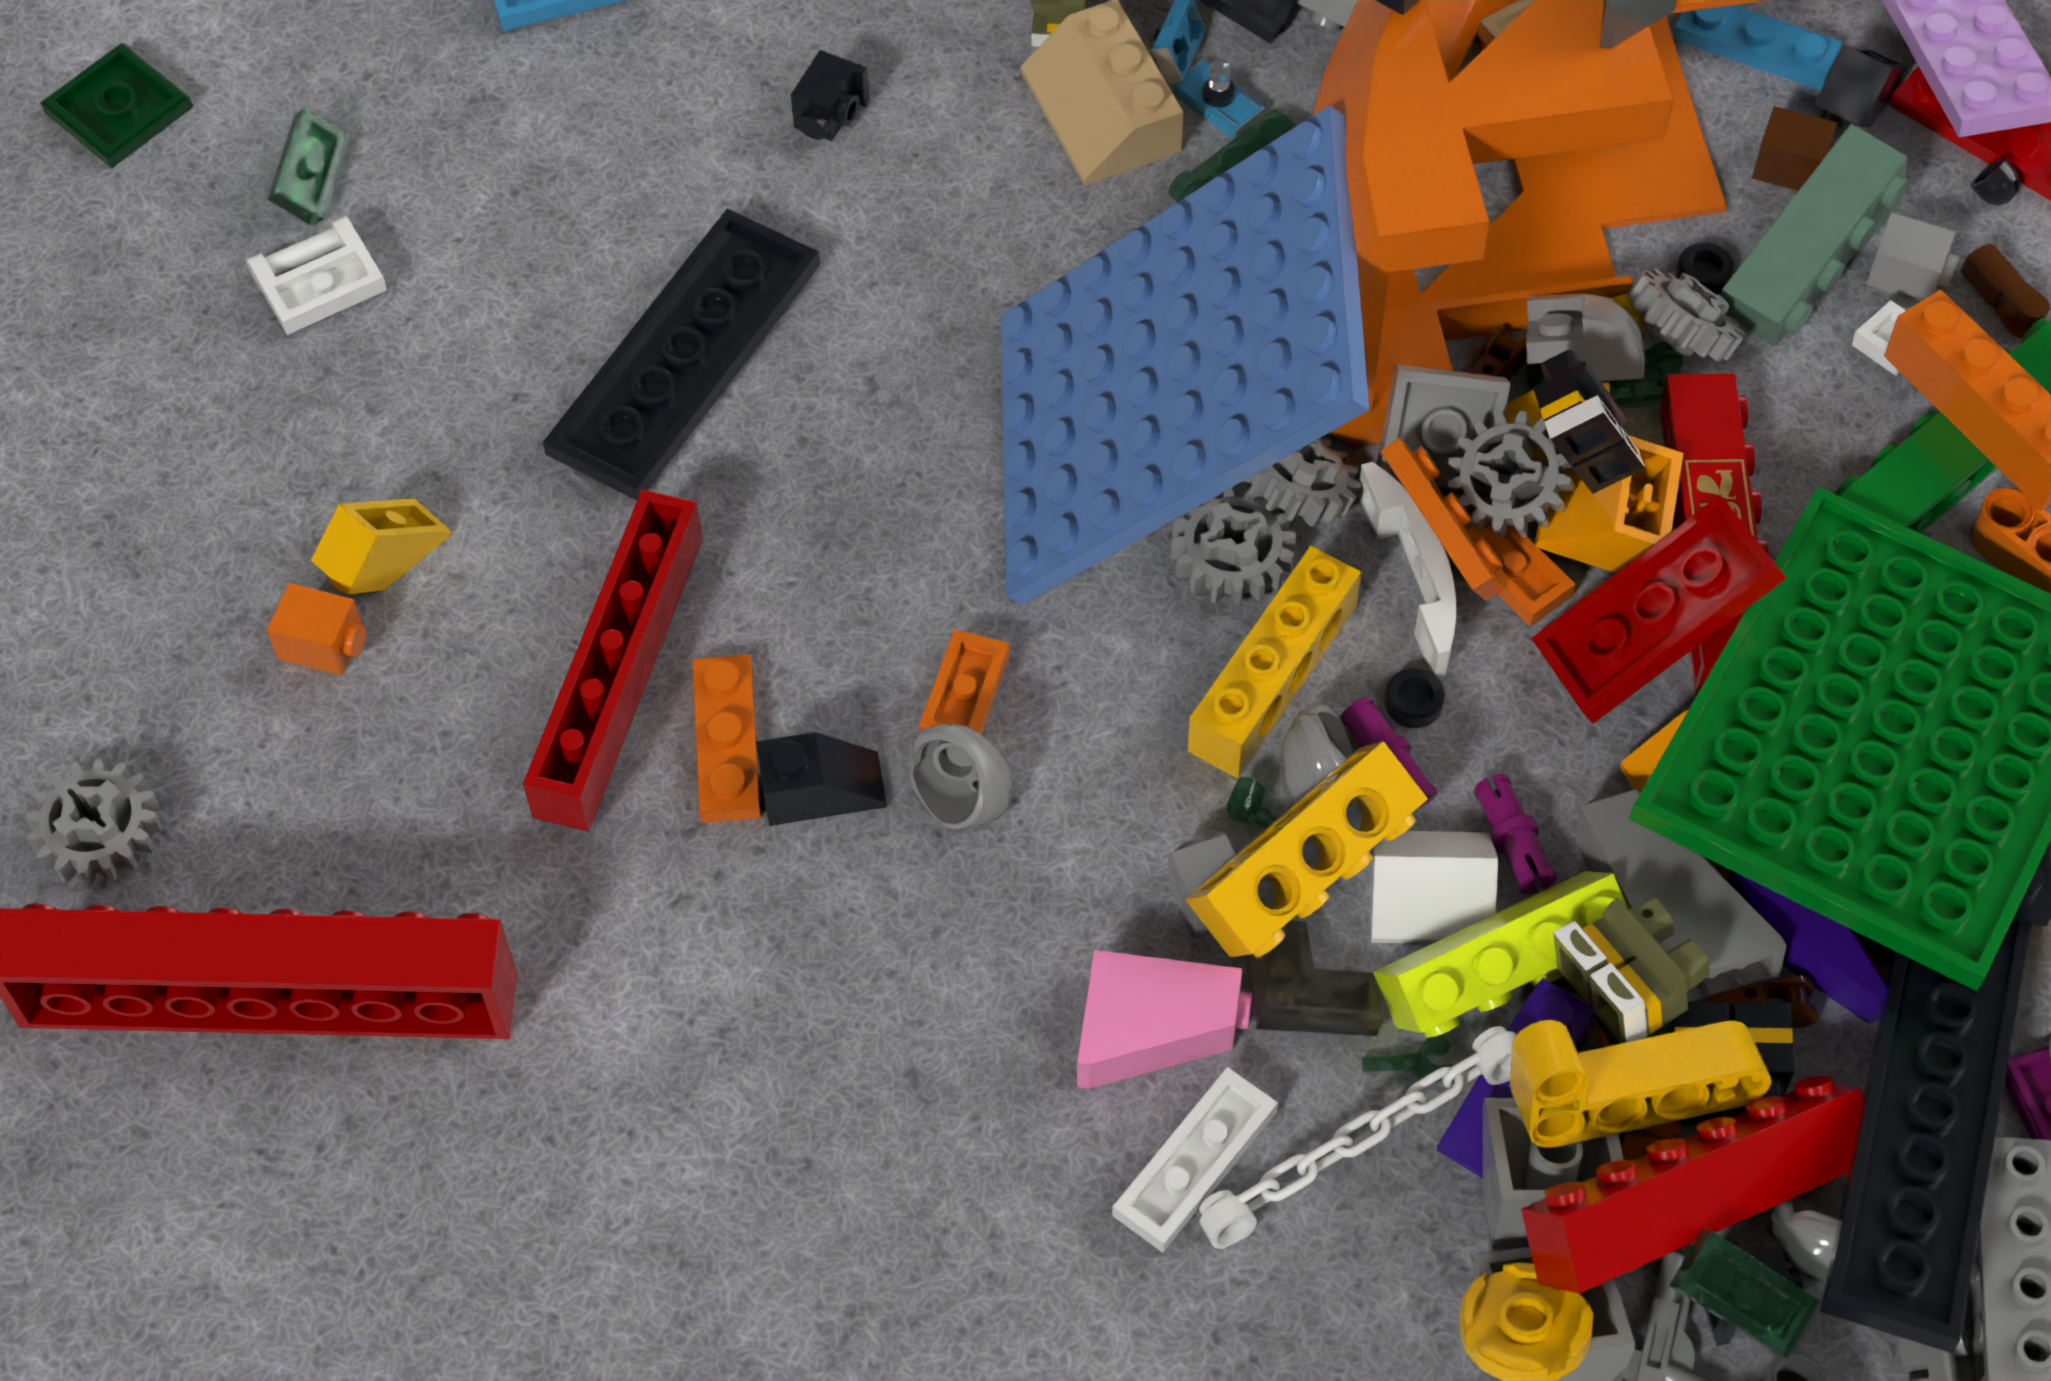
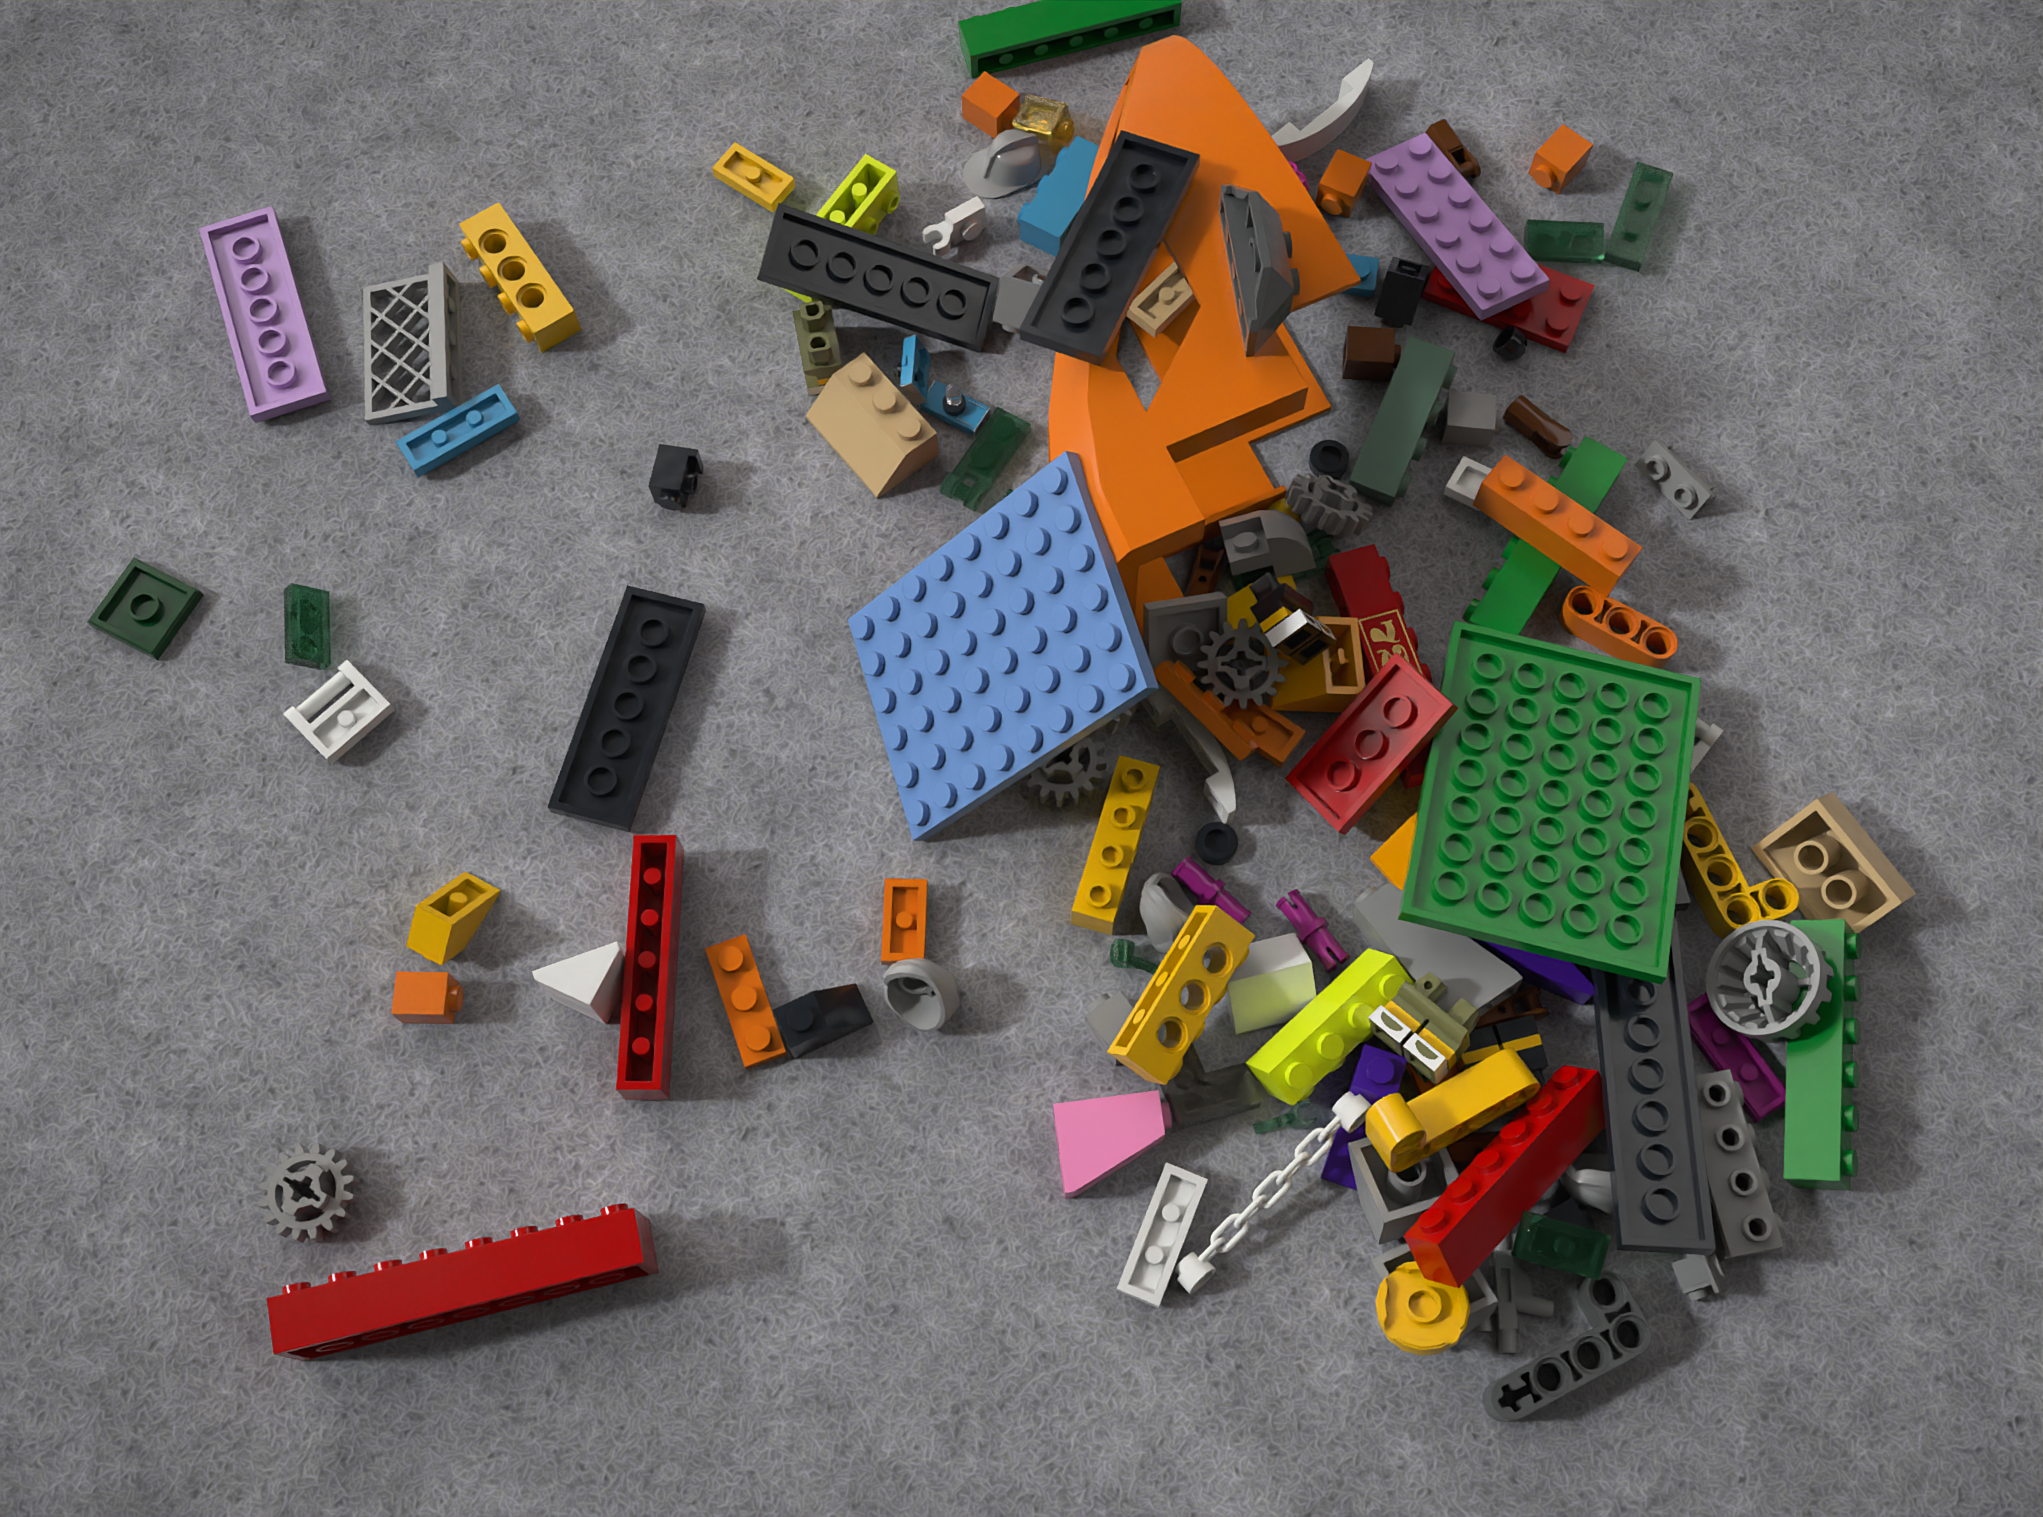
camera: 15 degrees left, 10 degrees up
(524, 650) = (587, 981): none -> white slope

